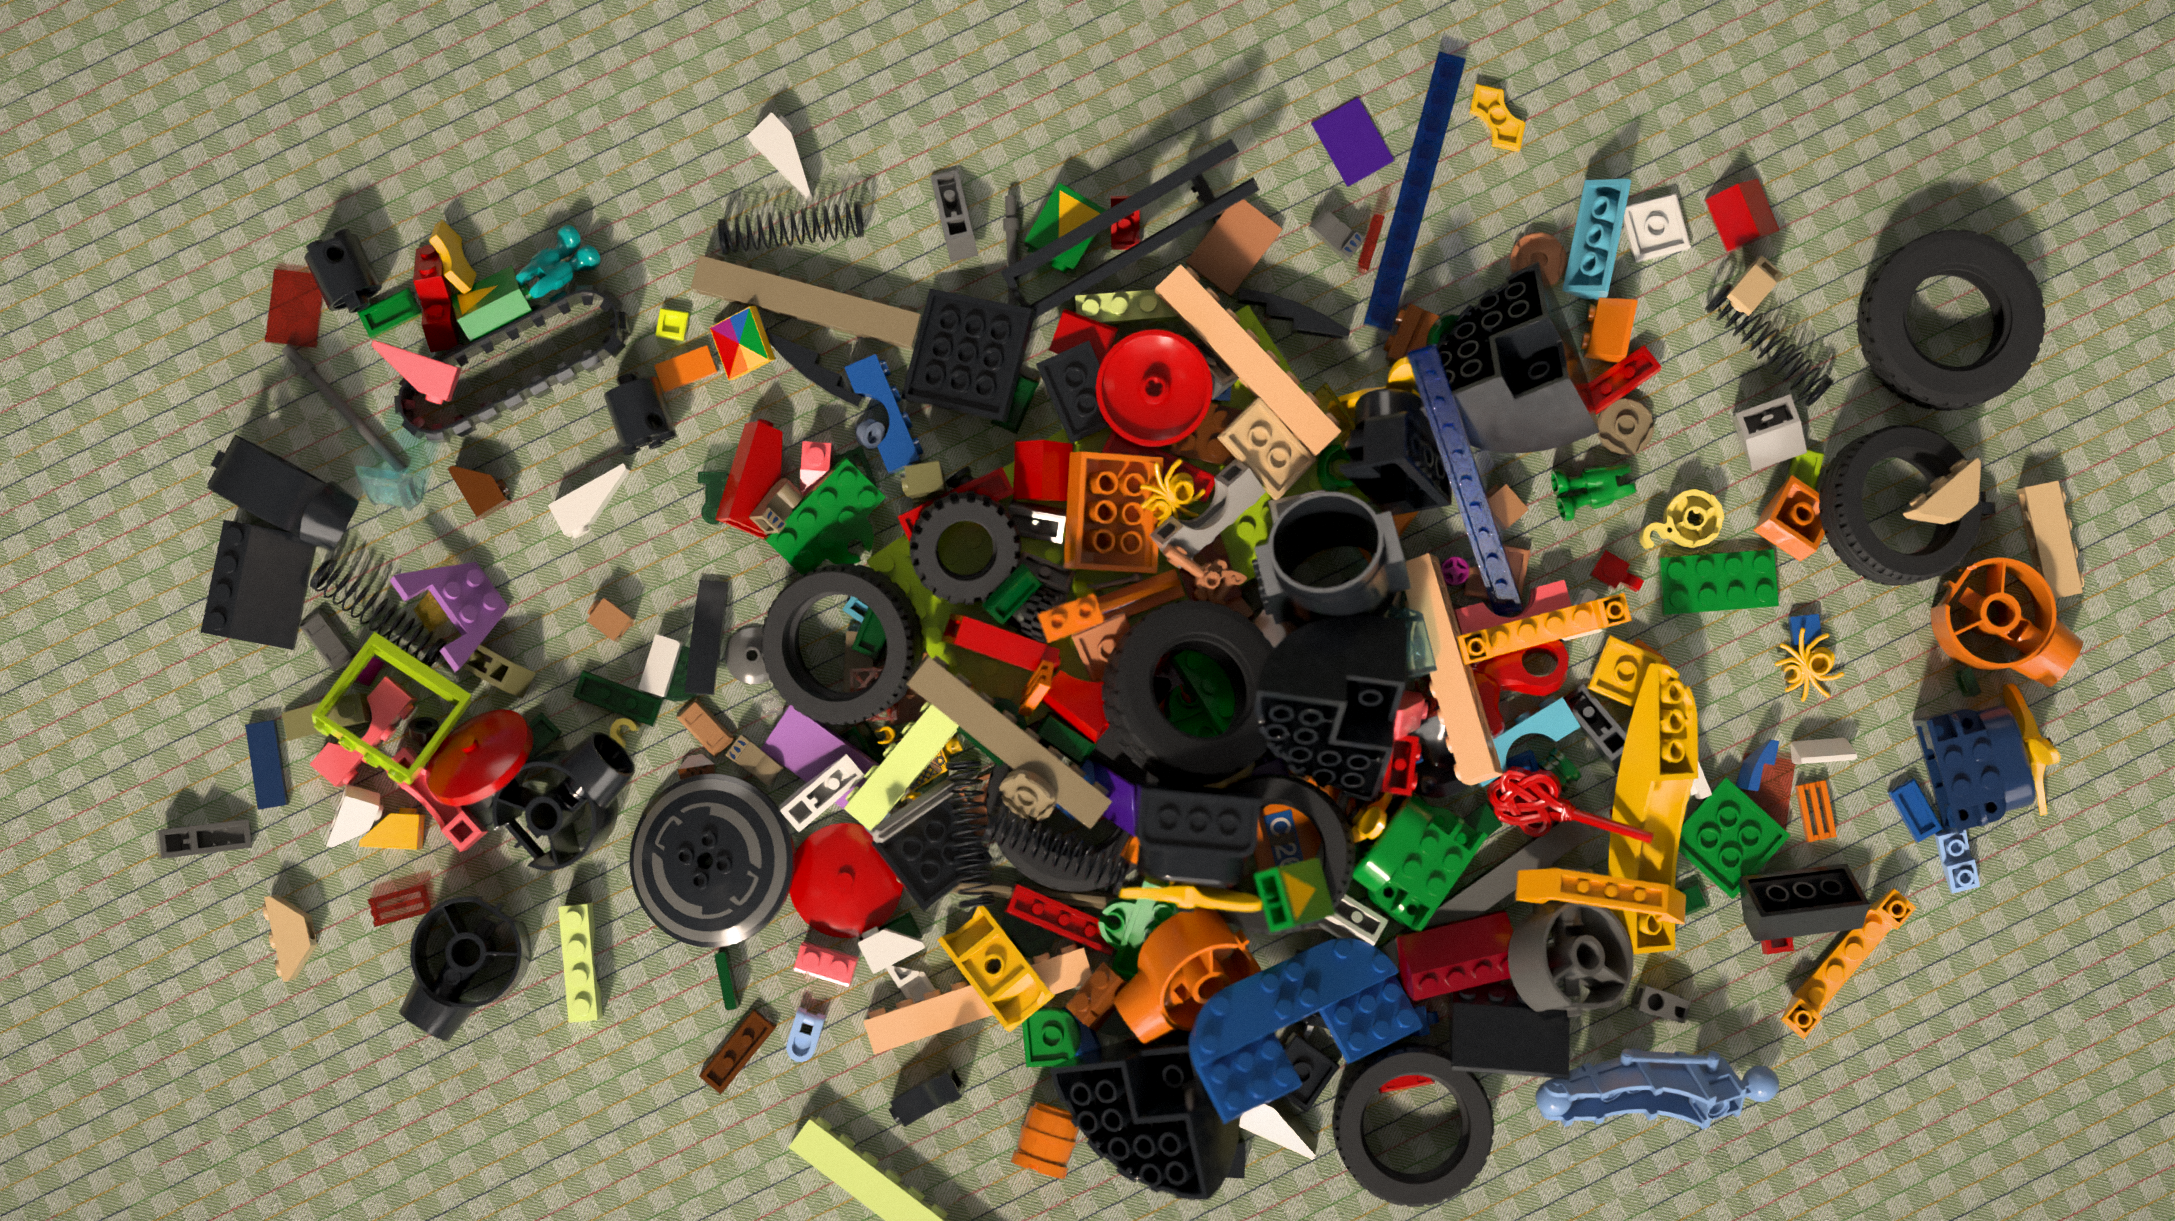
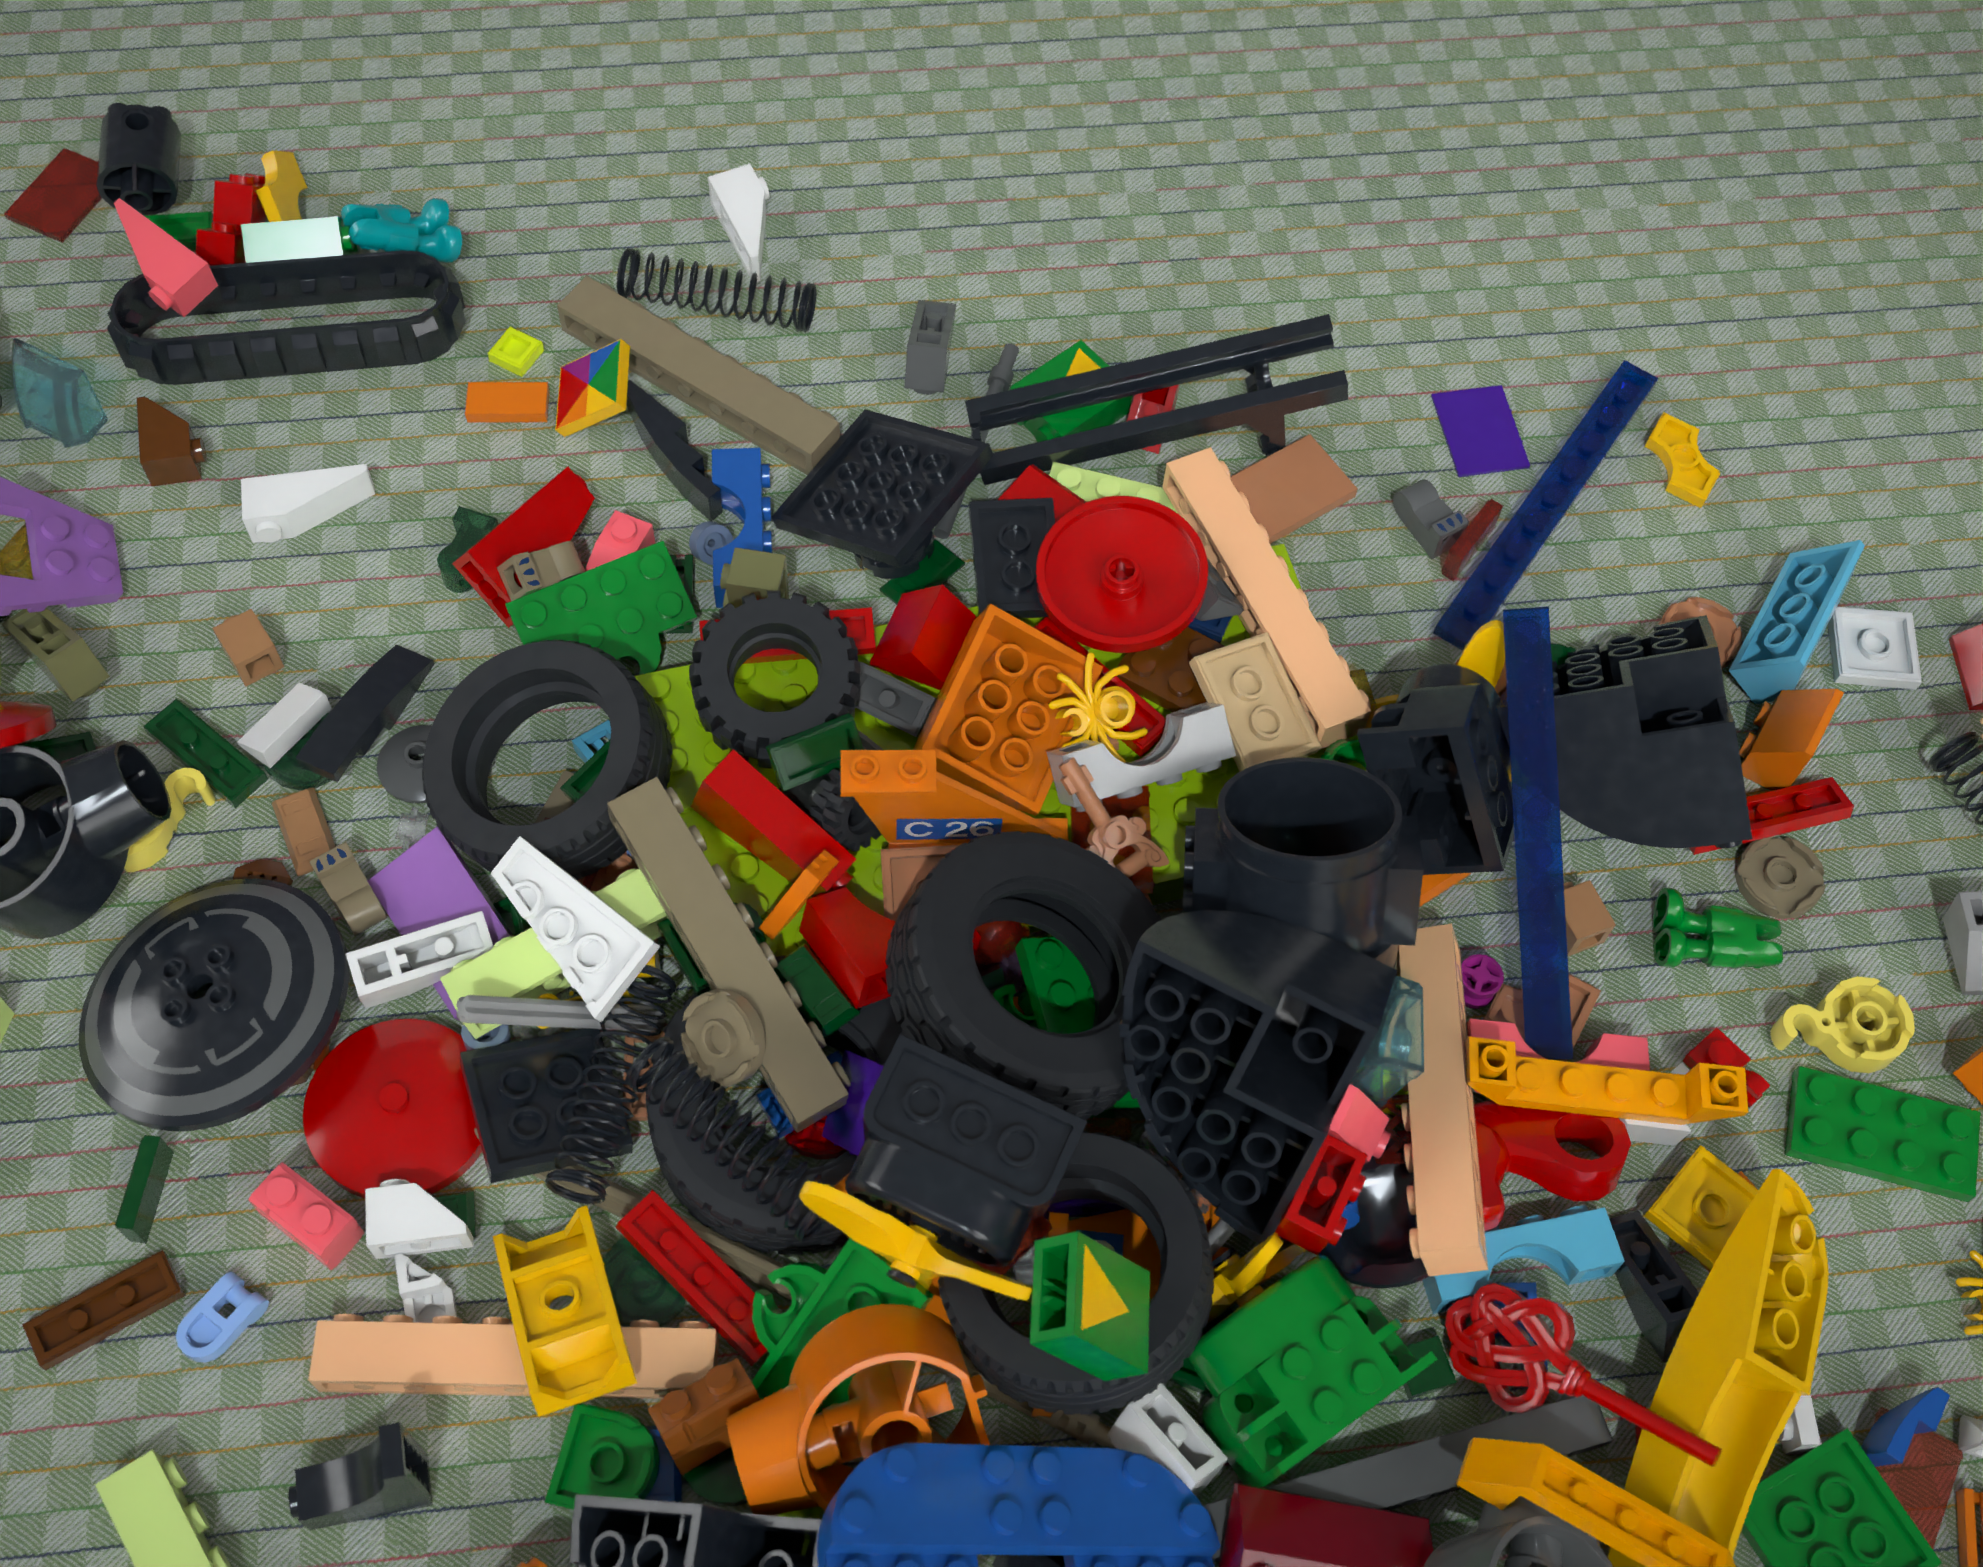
camera: 15 degrees right, 25 degrees down
(307, 370) = (35, 256): dark grey bar -> none
(639, 413) = (418, 418): black cylinder -> none
(919, 757) = (582, 933): none -> white wing
(1303, 319) = (1354, 595): black slope -> none
(1561, 767) = (1587, 1318): dark green wheel -> none

